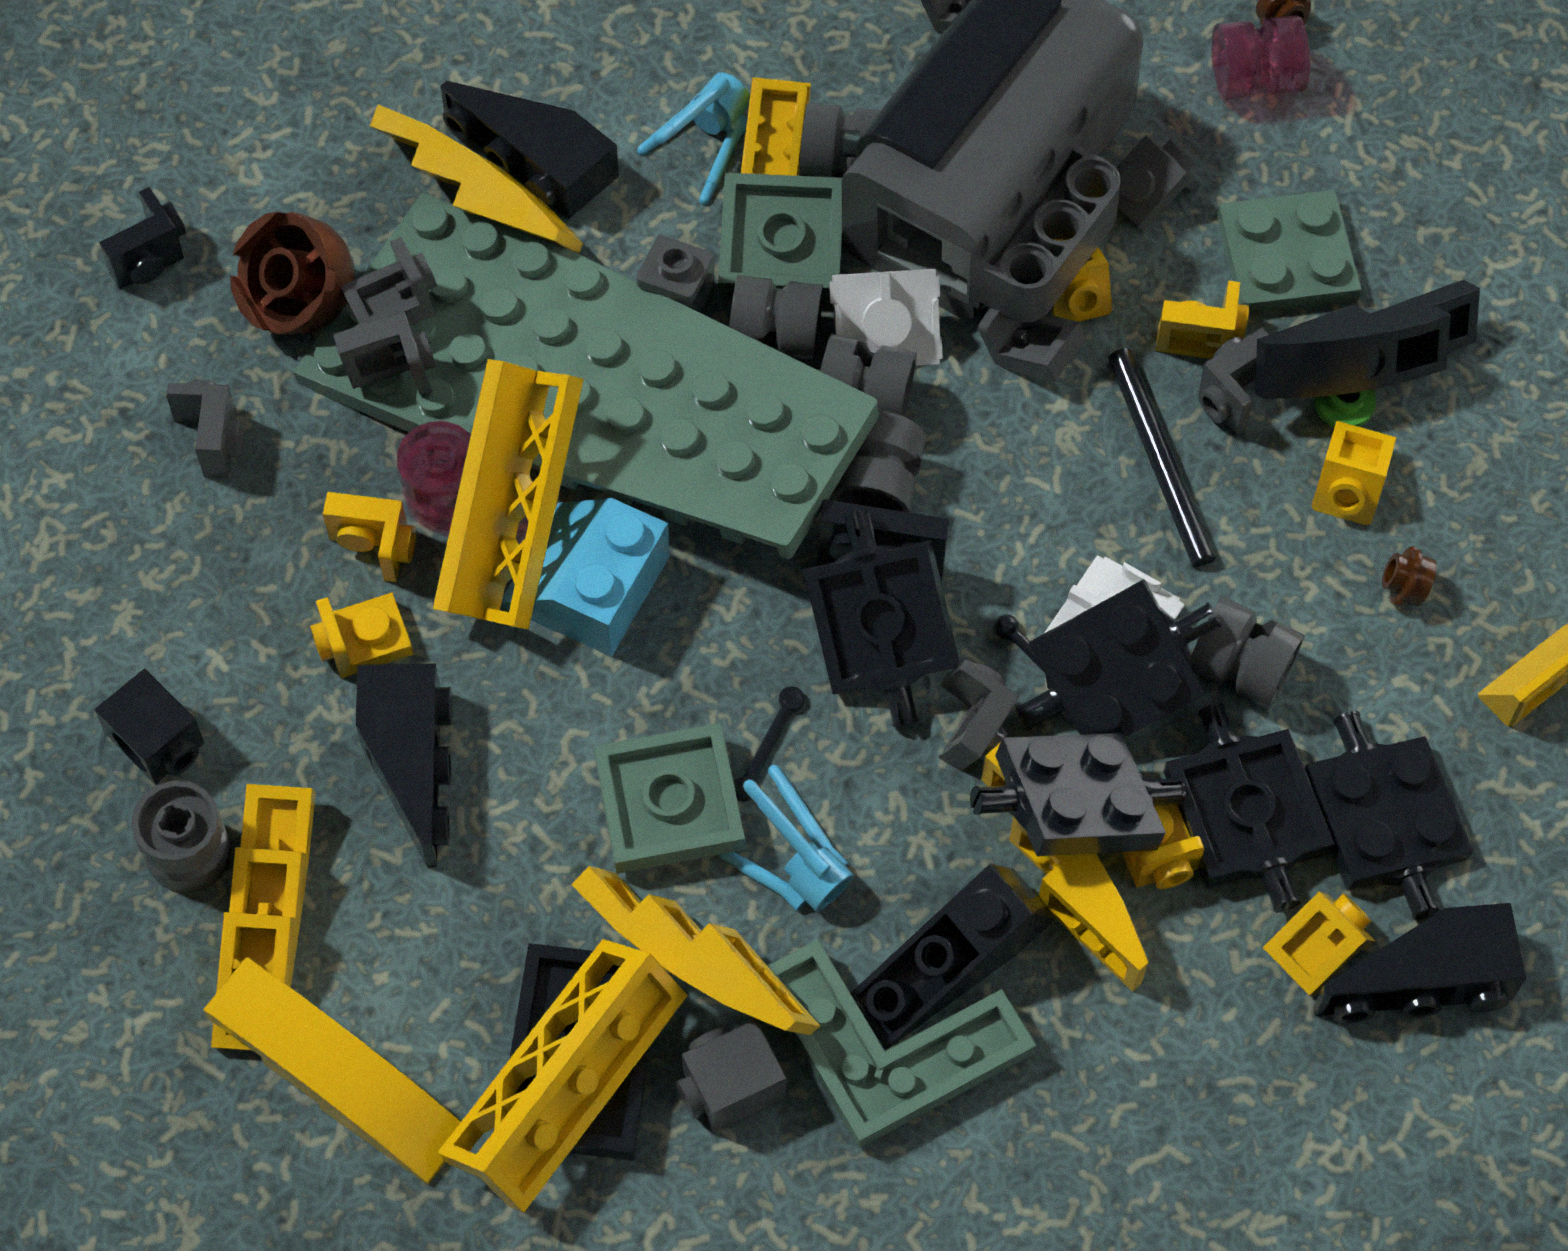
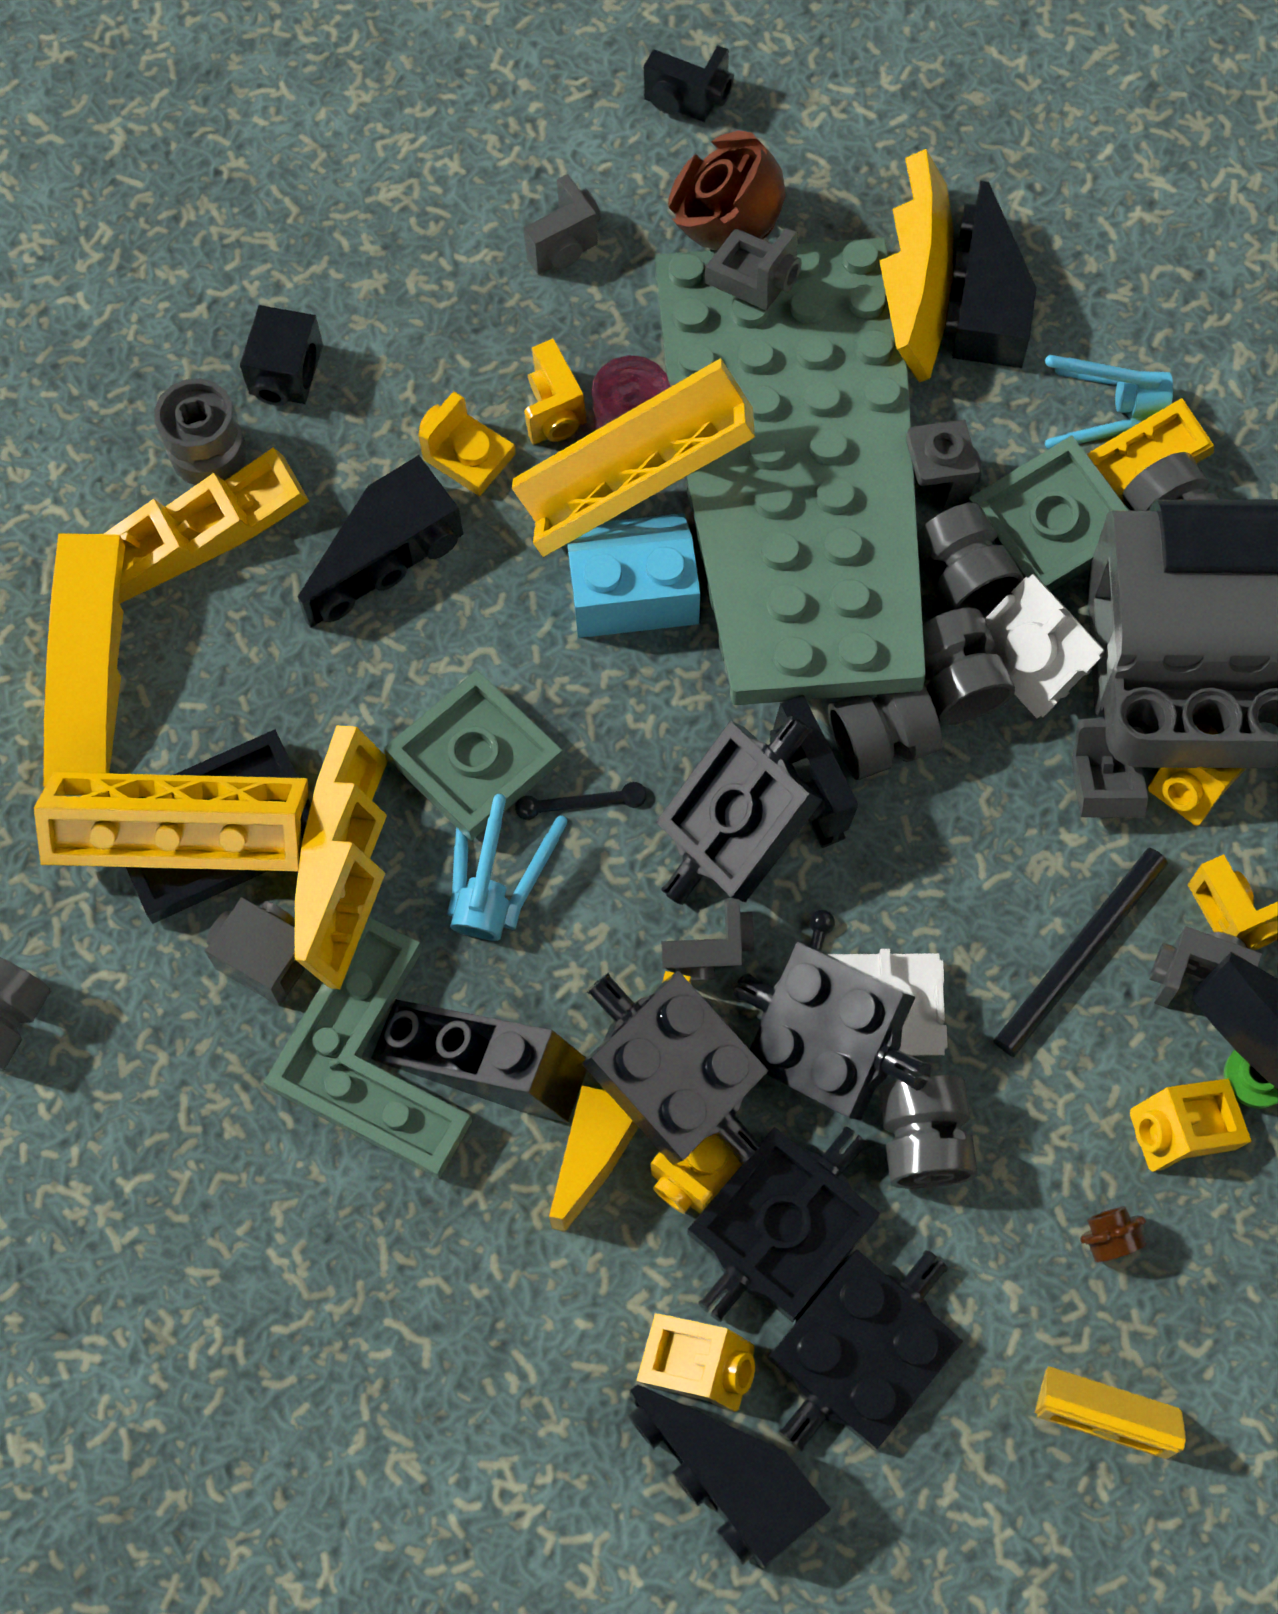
camera: 60 degrees right, 5 degrees up
(384, 350) = (700, 293): dark grey bracket -> none

